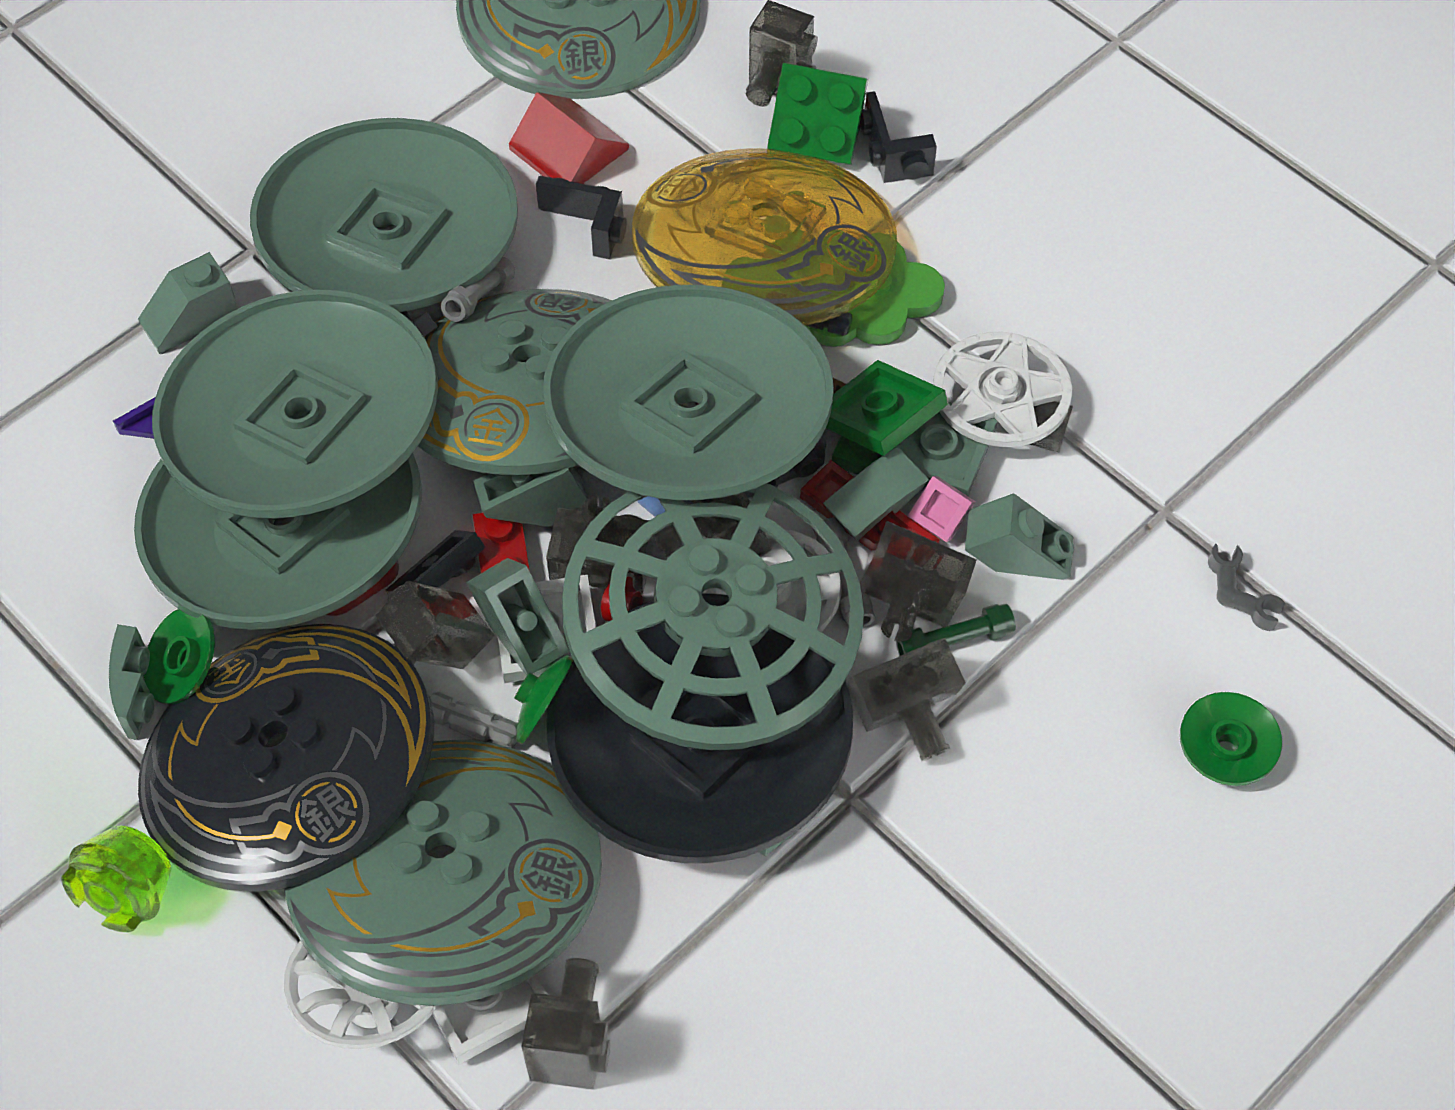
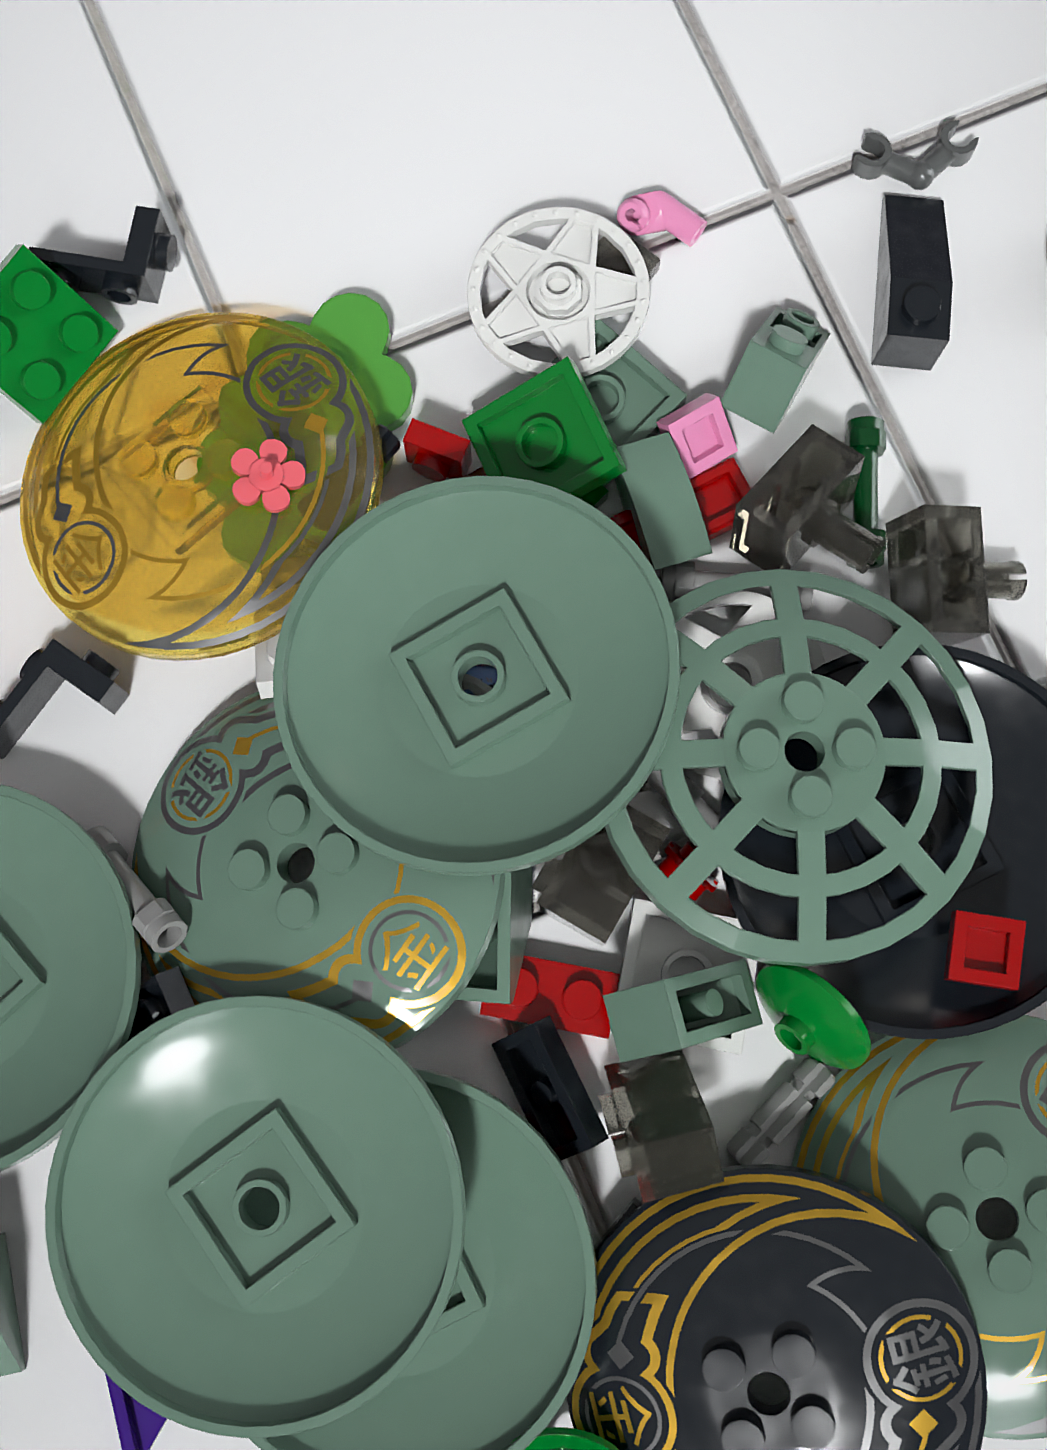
camera: 70 degrees left, 20 degrees up
(629, 772) = (985, 950): none -> red plate
(773, 249) = (266, 476): none -> coral plant
(850, 357) = (436, 452): none -> red plate
(1101, 436) = (657, 213): none -> bright pink arm
(1134, 609) = (912, 284): none -> black slope

